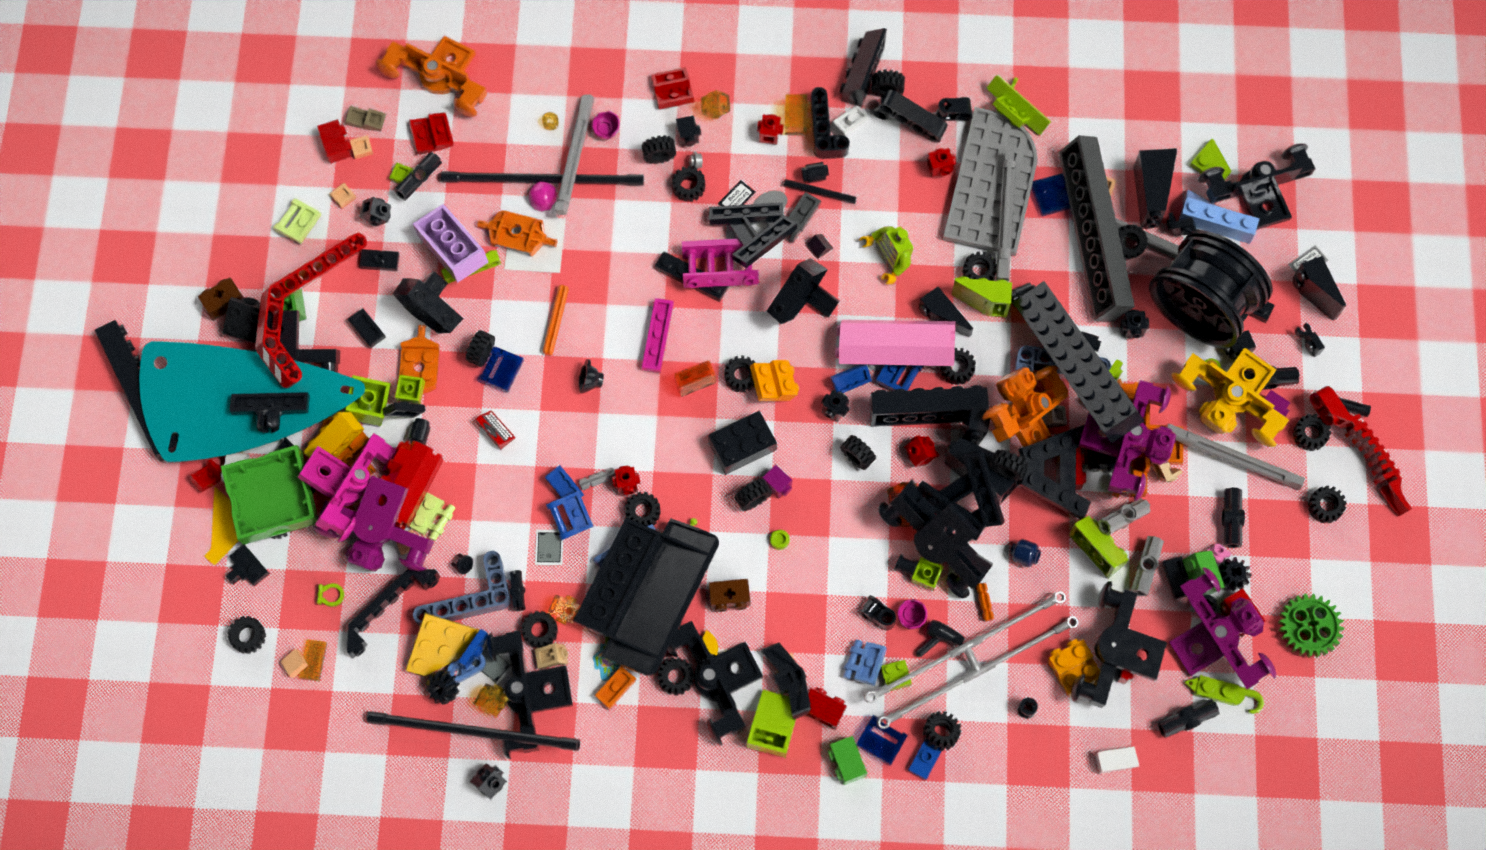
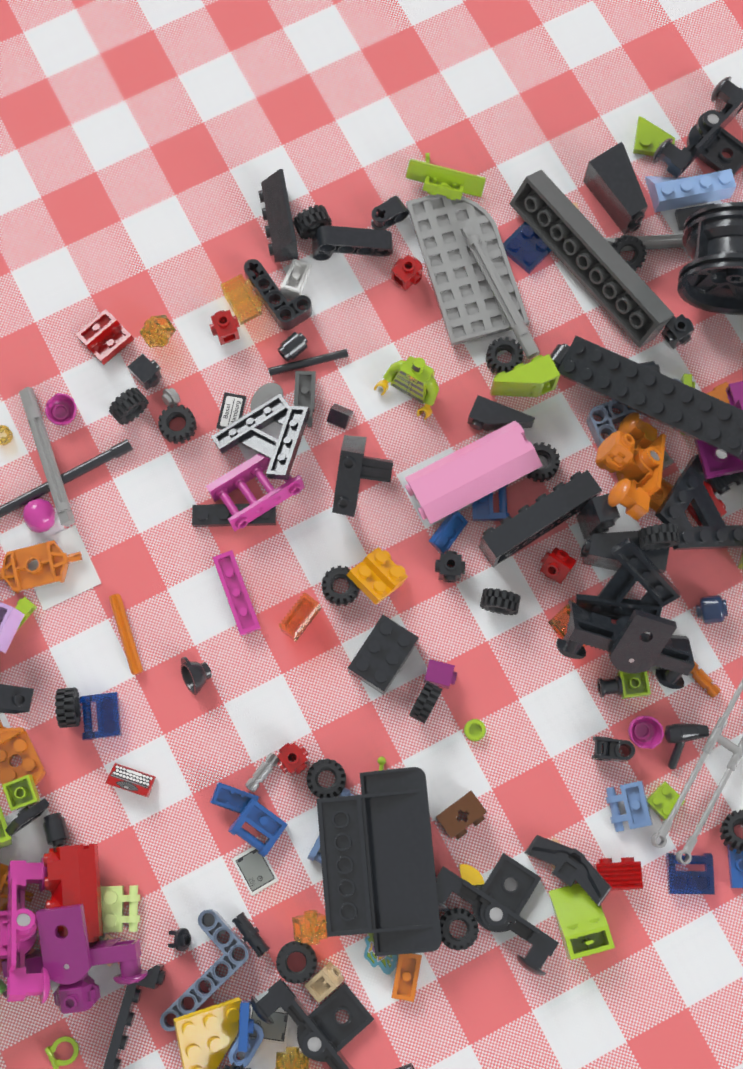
camera: 30 degrees left, 5 degrees up
(848, 760) = (672, 914): bright green brick -> none
(1181, 227) = (667, 214): black bracket -> none

